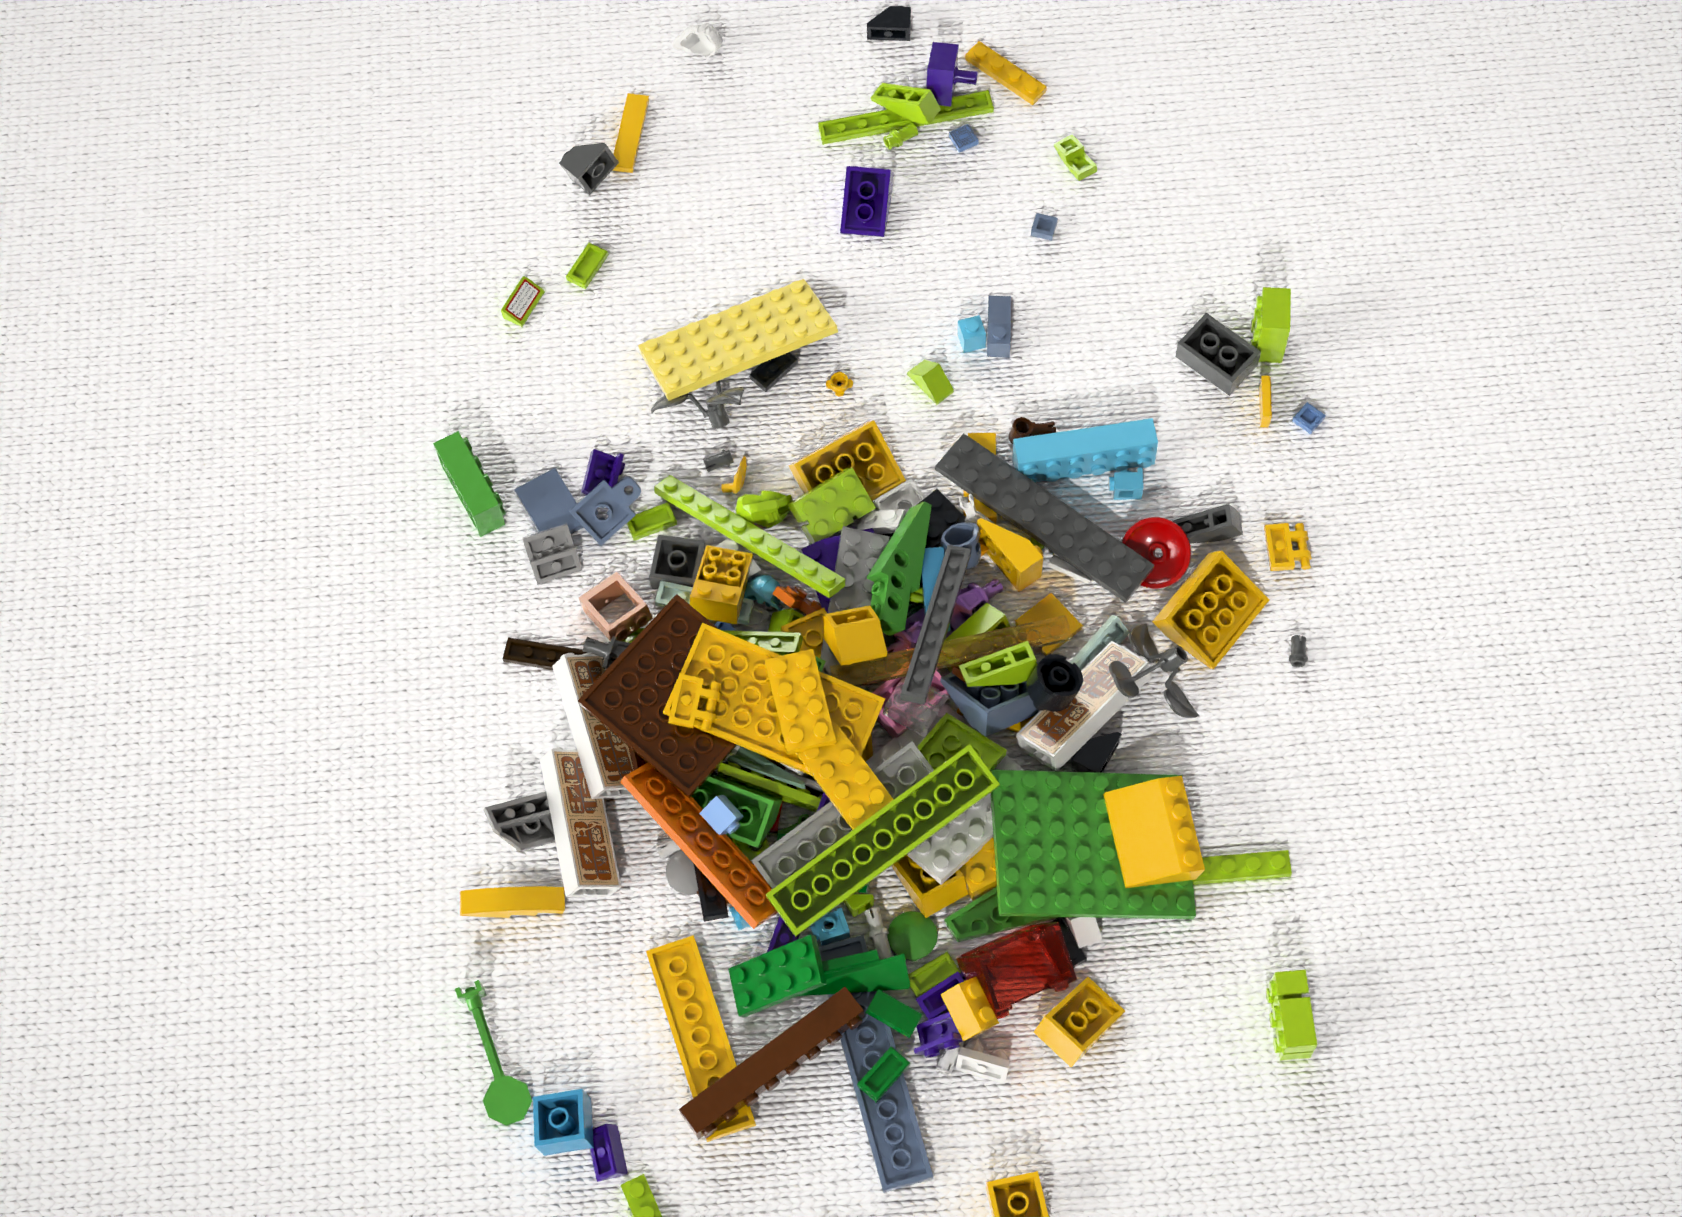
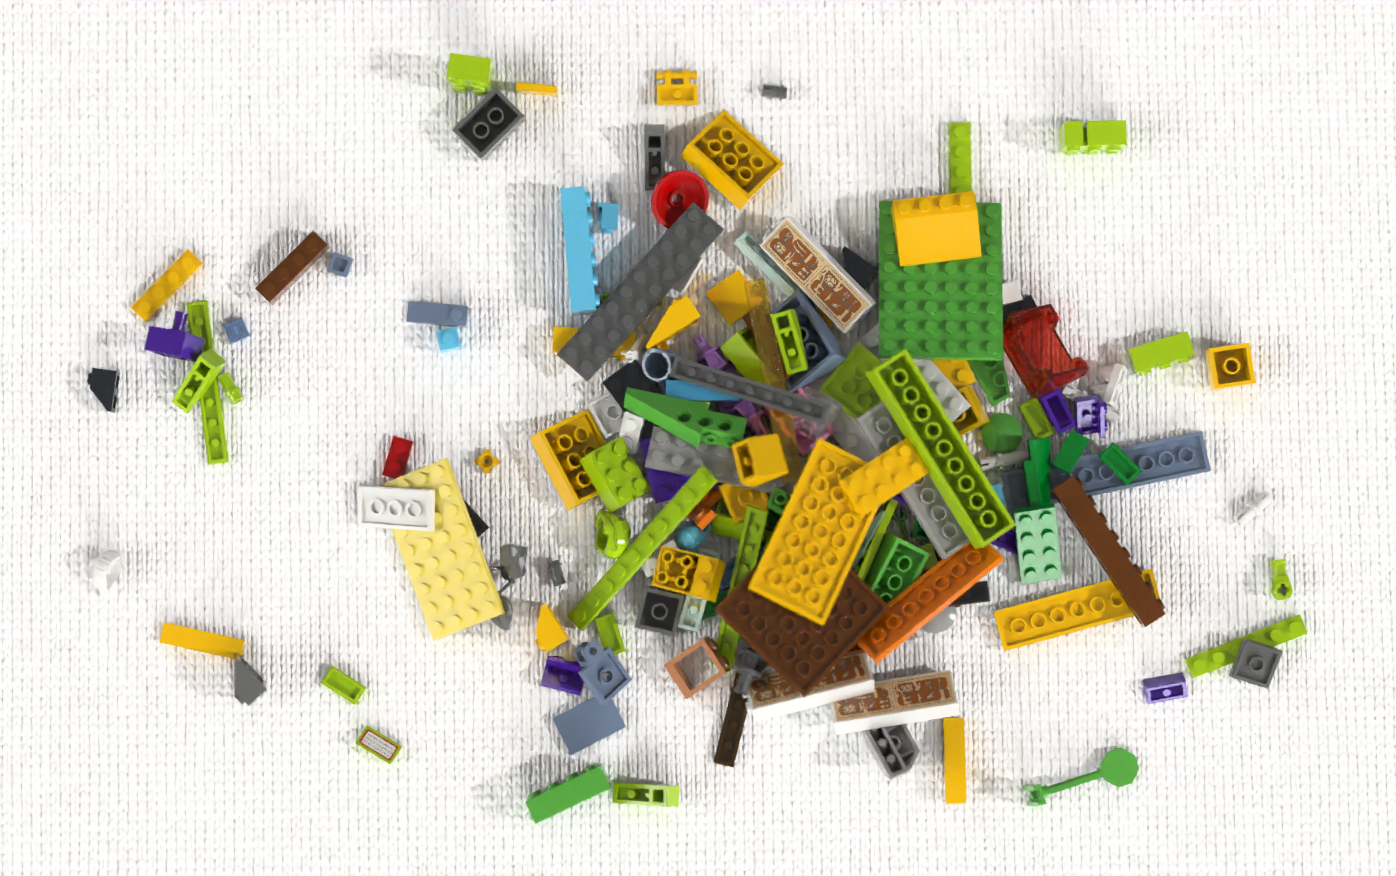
camera: 95 degrees left, 20 degrees up
(470, 569) = (646, 794): none -> lime slope
(552, 554) = (637, 722): light grey slope -> none
(563, 1122) = (1144, 721): dark azure brick -> none
(652, 446) = (549, 630): none -> yellow slope
(686, 702) = (819, 603): yellow plate -> none
(722, 815) = (905, 581): light blue brick -> none
(738, 481) = (575, 555): yellow bar -> none
(780, 292) = (396, 508): none -> white tile
(800, 701) = (824, 508): yellow plate -> none
(838, 298) = (397, 457): none -> red plate
(866, 201) = (300, 424): dark purple slope -> none
(931, 380) = (489, 380): lime slope -> none
(969, 1008) = (1080, 390): yellow brick -> none
(1027, 1120) = (1160, 353): none -> lime brick
(1029, 428) = (549, 294): reddish brown pin -> none
(1036, 180) = (292, 268): none -> reddish brown brick
(1054, 683) = (809, 296): black brick -> none
(1075, 158) = (267, 230): lime slope -> none
(1079, 1021) = (1083, 305): yellow slope -> none
(1169, 661) = (790, 197): dark grey plant -> none
(1308, 418) = (553, 53): medium blue tile -> none

